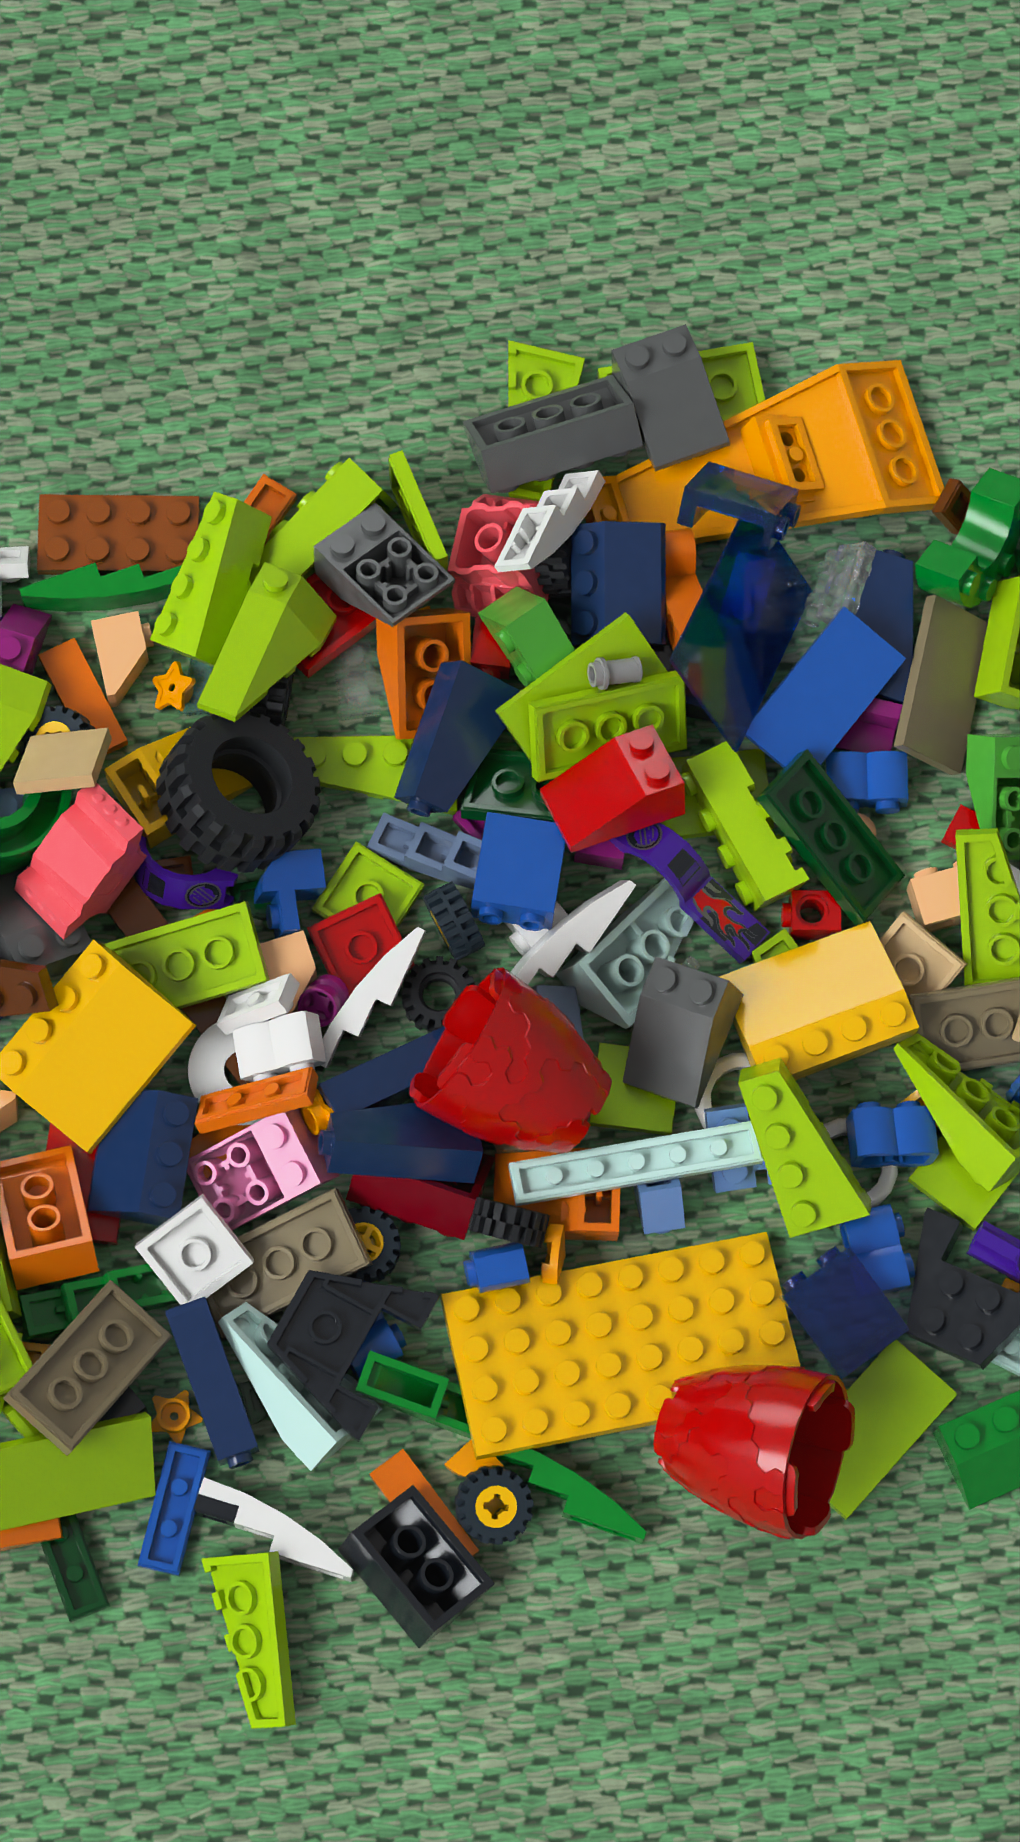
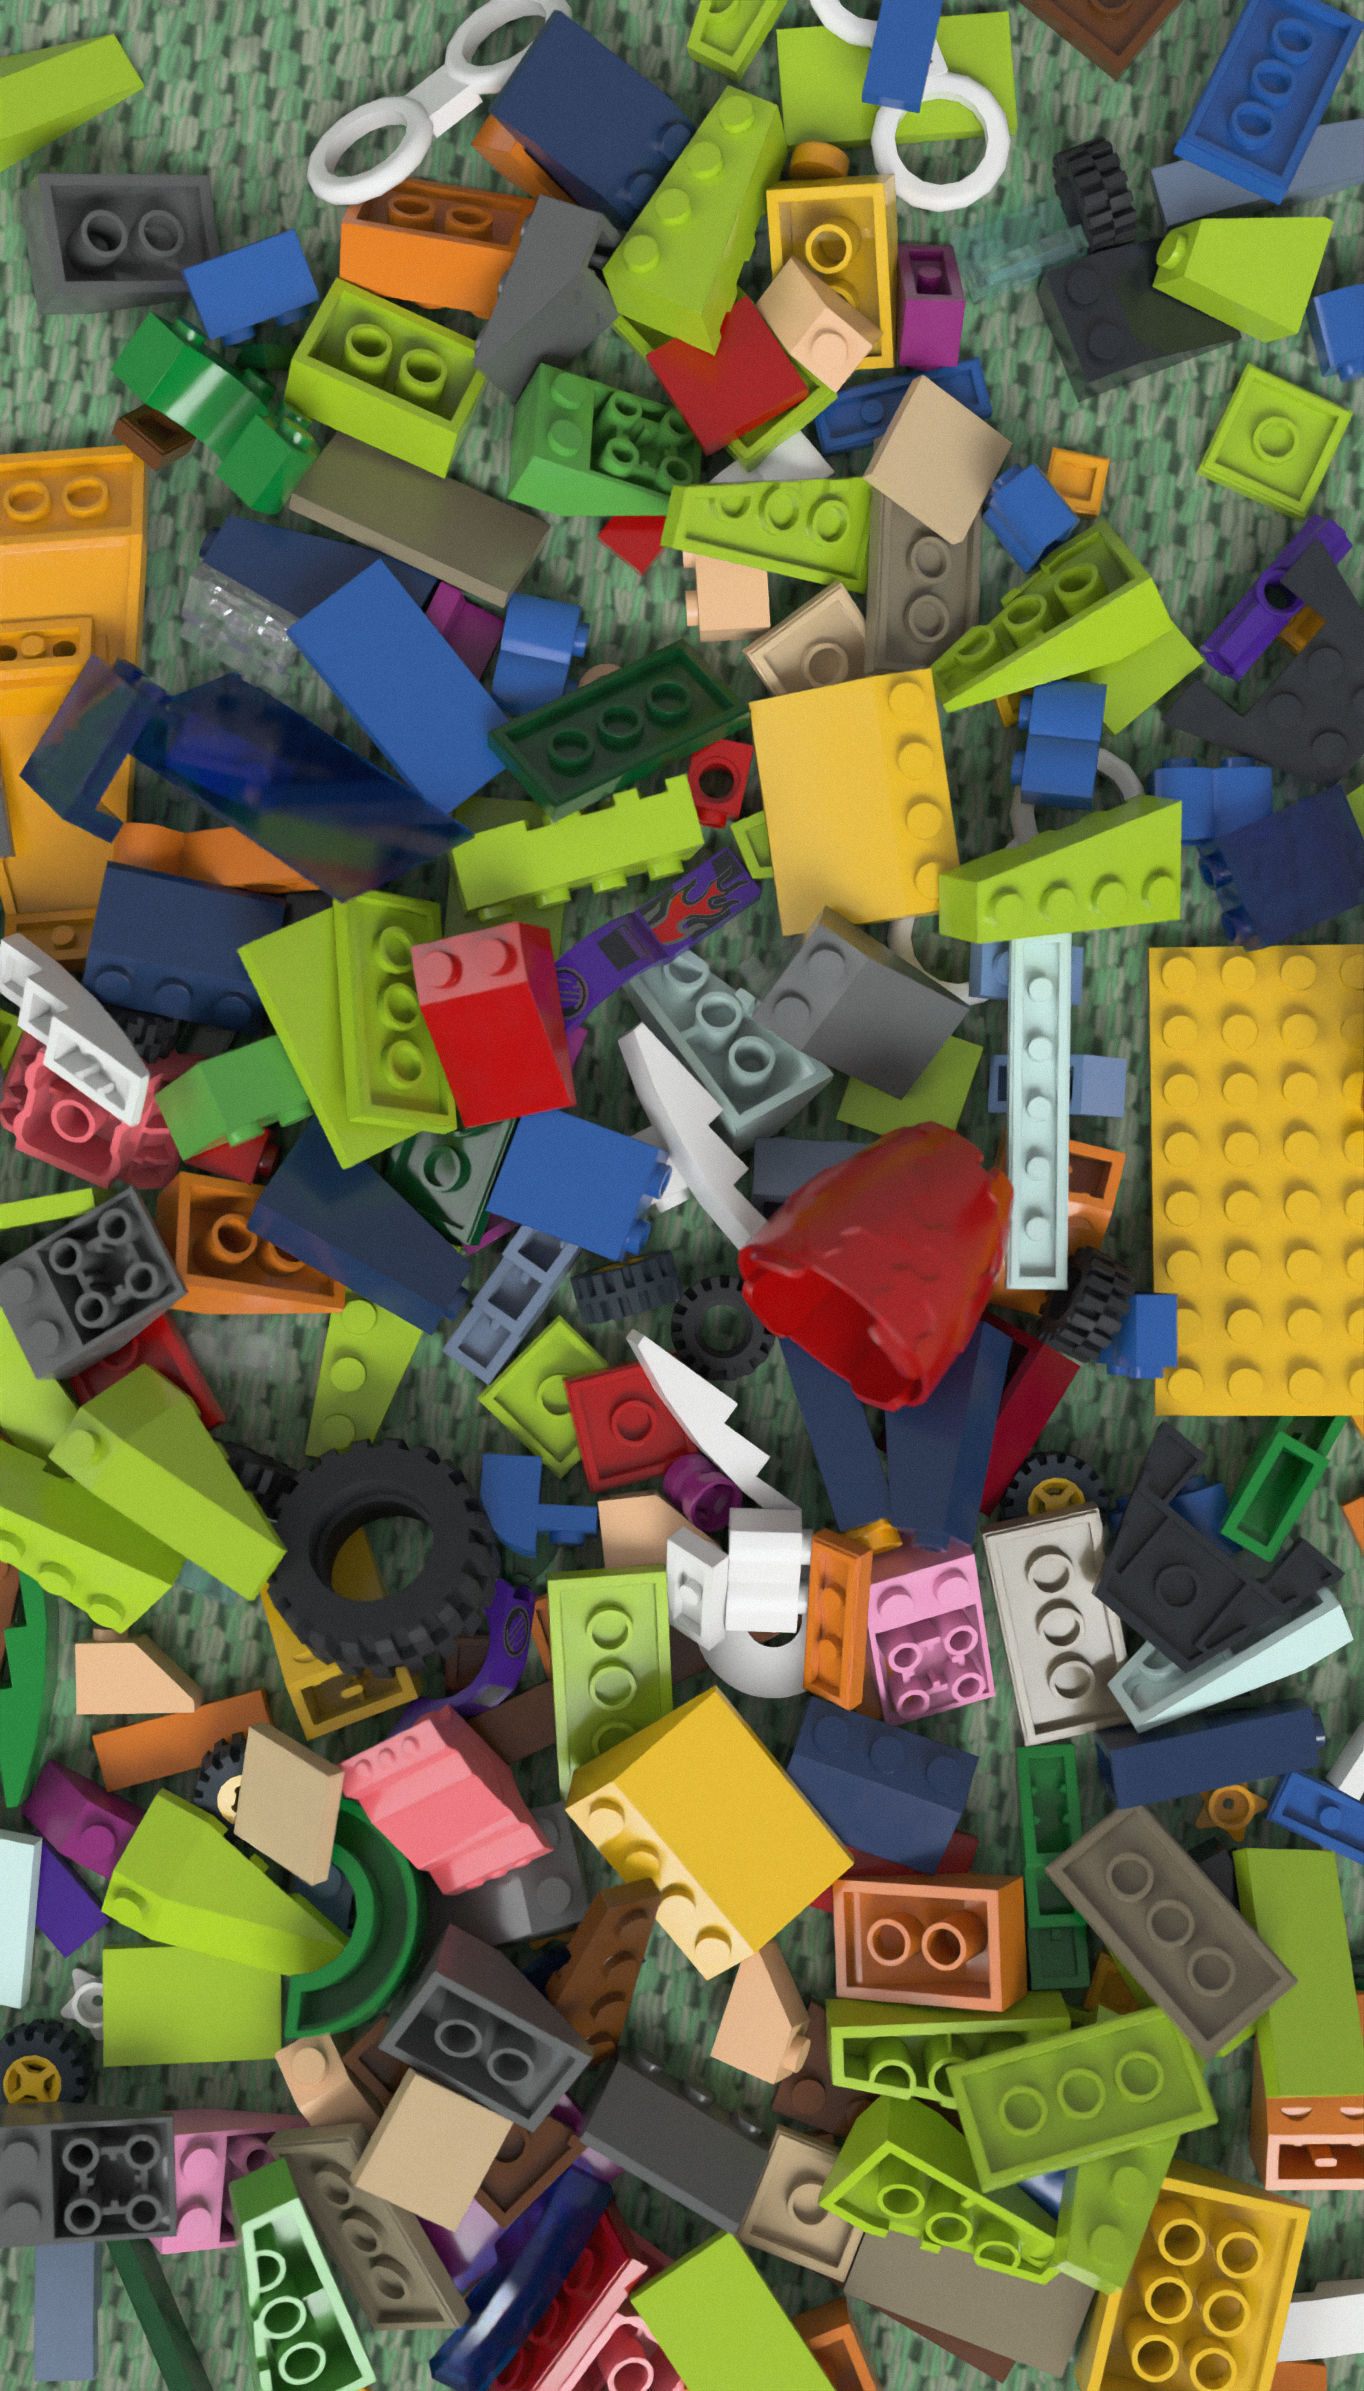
camera: 75 degrees left, 15 degrees up
(183, 688) = (200, 1597): light orange plate -> none
(194, 1252) = (1029, 1743): white plate -> none
(555, 1253) = (1138, 1249): light orange tile -> none
(610, 672) = (325, 985): light grey pin -> none

